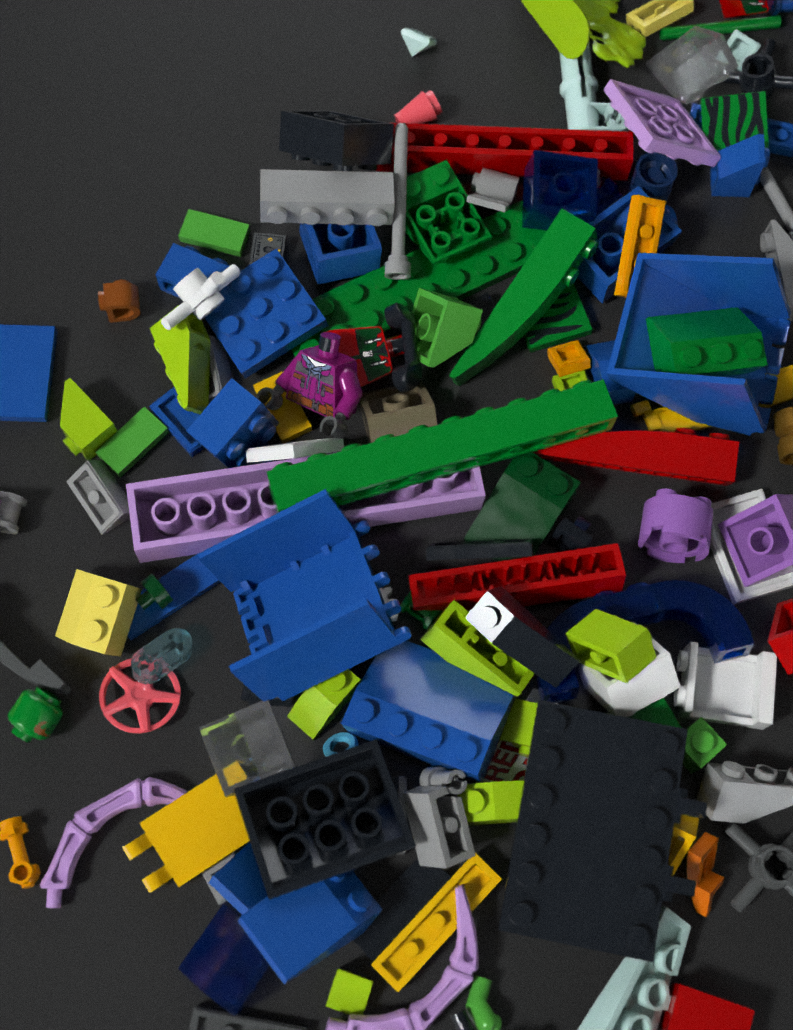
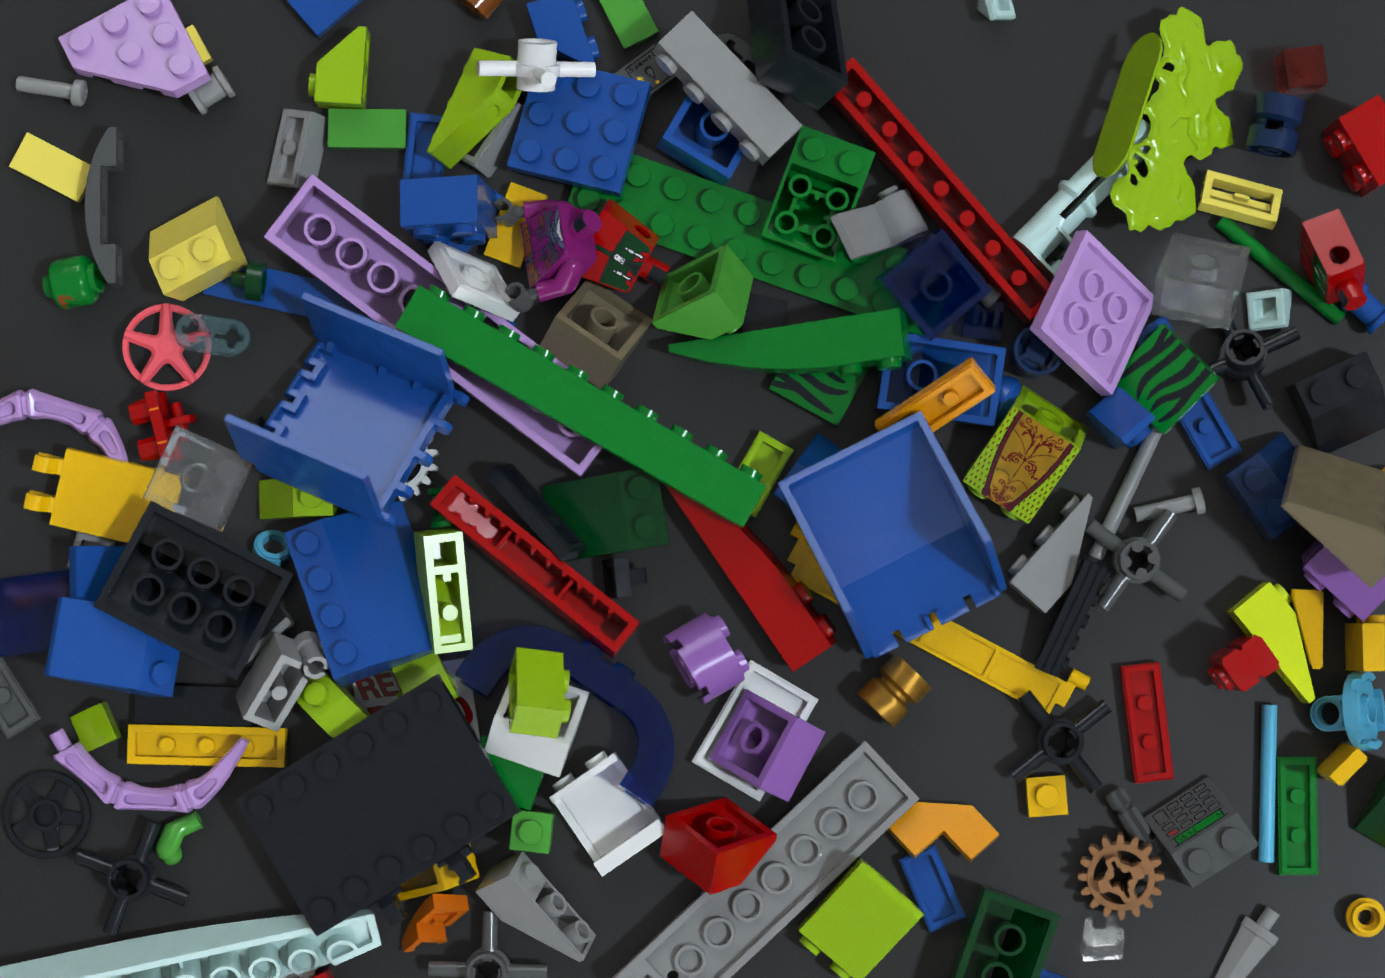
camera: 50 degrees right, 15 degrees up
(172, 741) = (156, 410): none -> red hips
(397, 265) = (732, 204): light grey piece -> none
(406, 376) = (684, 254): black bar -> none
(420, 110) = (916, 73): coral cone -> none
(522, 636) = (480, 612): black slope -> none
(568, 358) = (789, 429): light orange tile -> none
(706, 343) = (893, 540): green slope -> none
(716, 227) = (1025, 456): none -> slope

